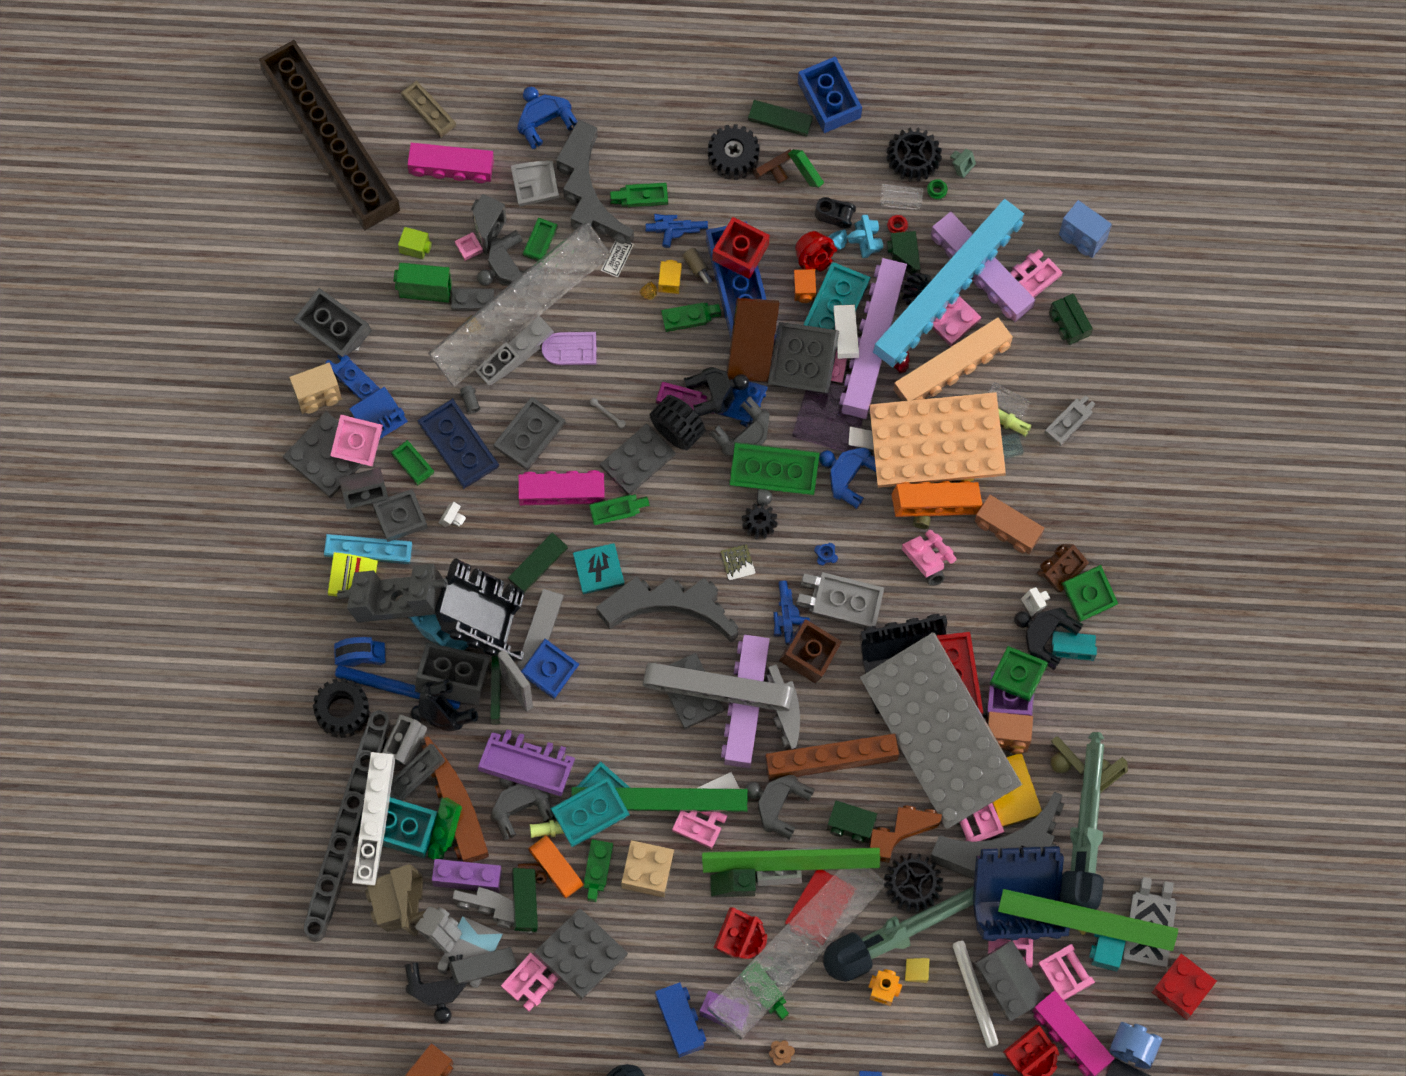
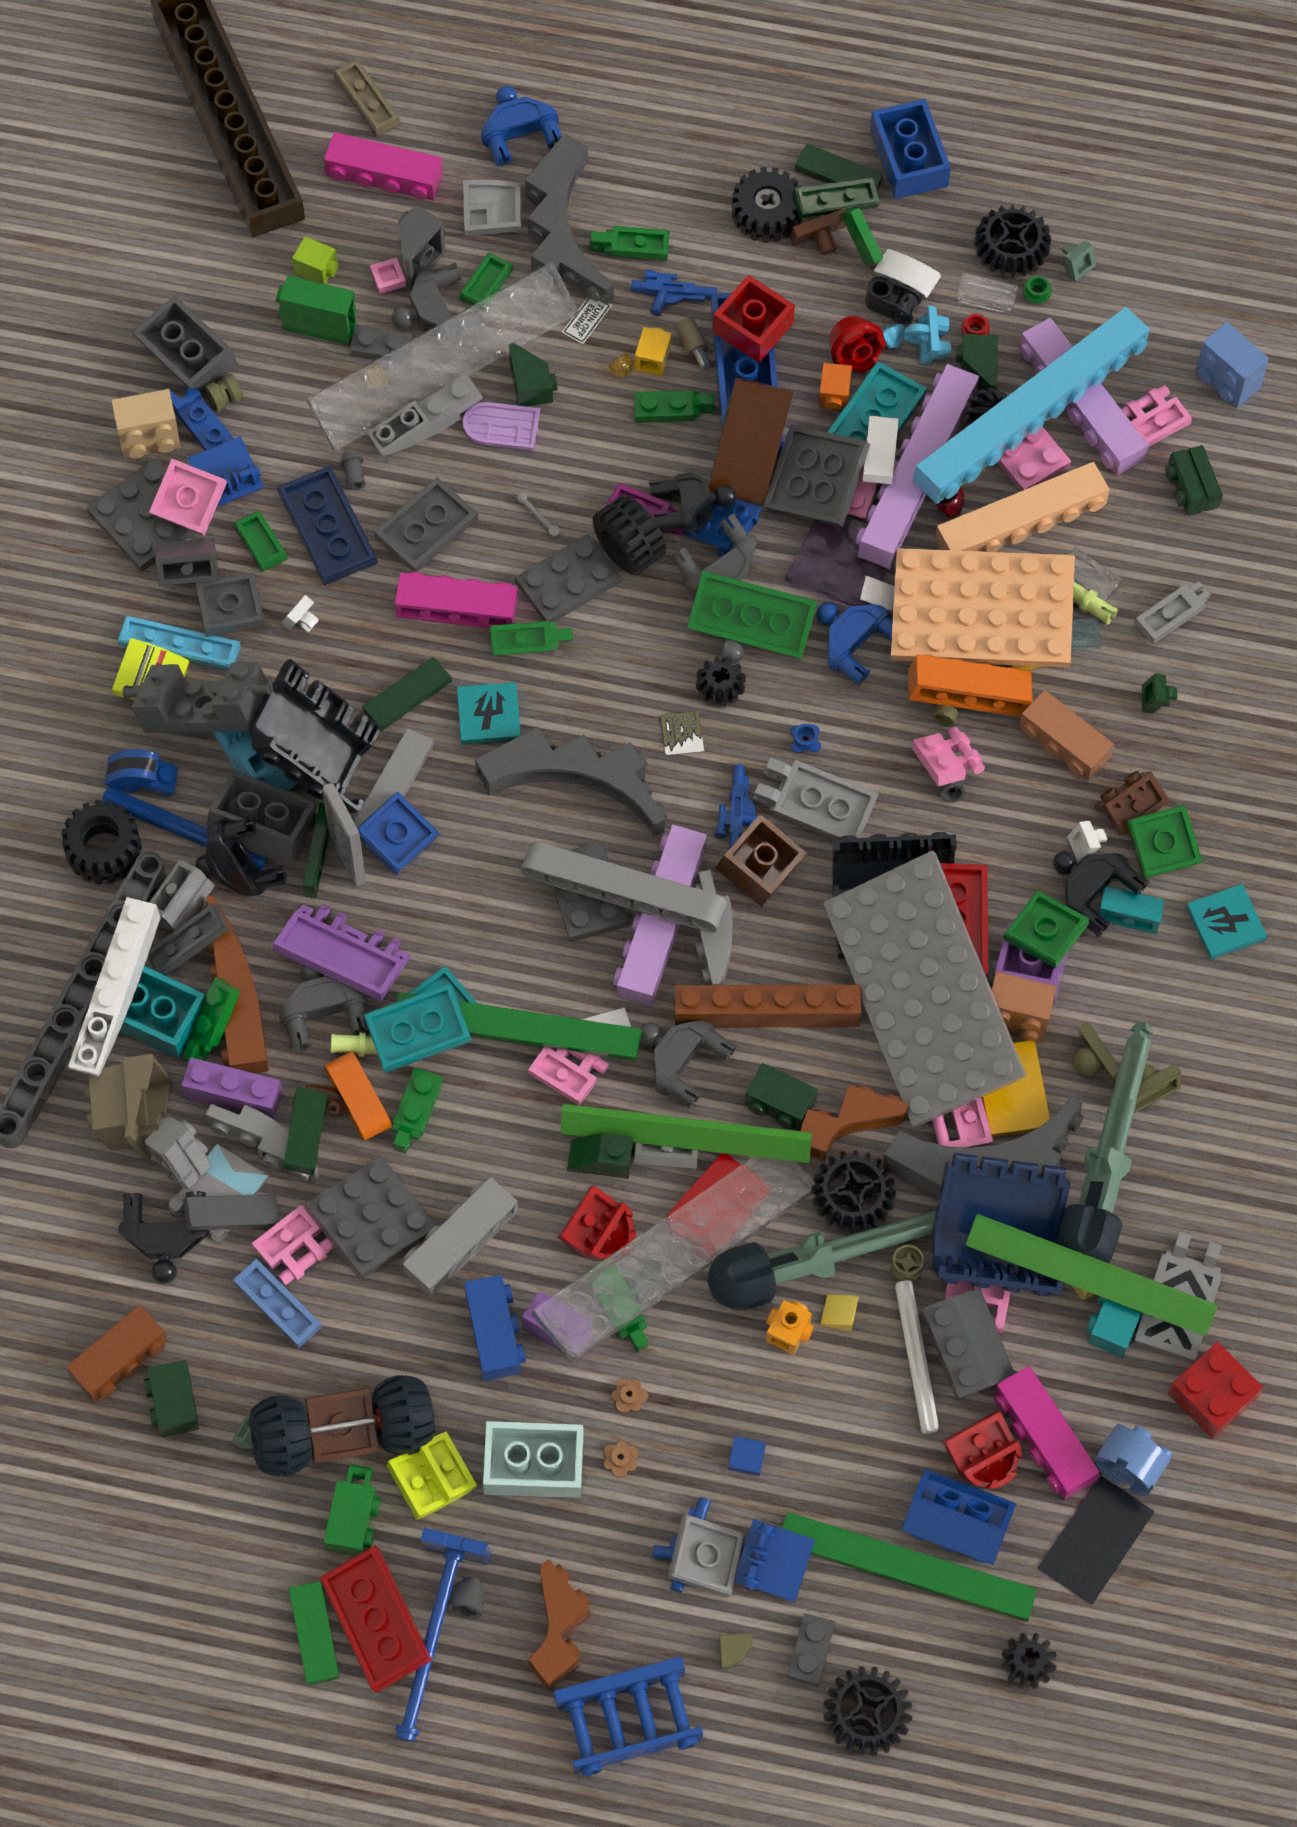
camera: 10 degrees right, 5 degrees down
(366, 354) = (223, 392): none -> olive wheel
(526, 1025) = (277, 1303): none -> medium blue plate
(585, 310) = (531, 377): none -> dark green slope
(645, 958) = (460, 1236): none -> light grey brick
(647, 869) = (484, 1117): tan brick -> none
(782, 141) = (832, 197): none -> dark green tile
(842, 190) = (907, 272): none -> white slope
(958, 929) = (907, 1257): none -> olive wheel
(1060, 976) = (1041, 1350): bright pink plate -> none
(1068, 484) = (1156, 693): none -> dark green tile
(1141, 645) = (1226, 921): none -> teal tile

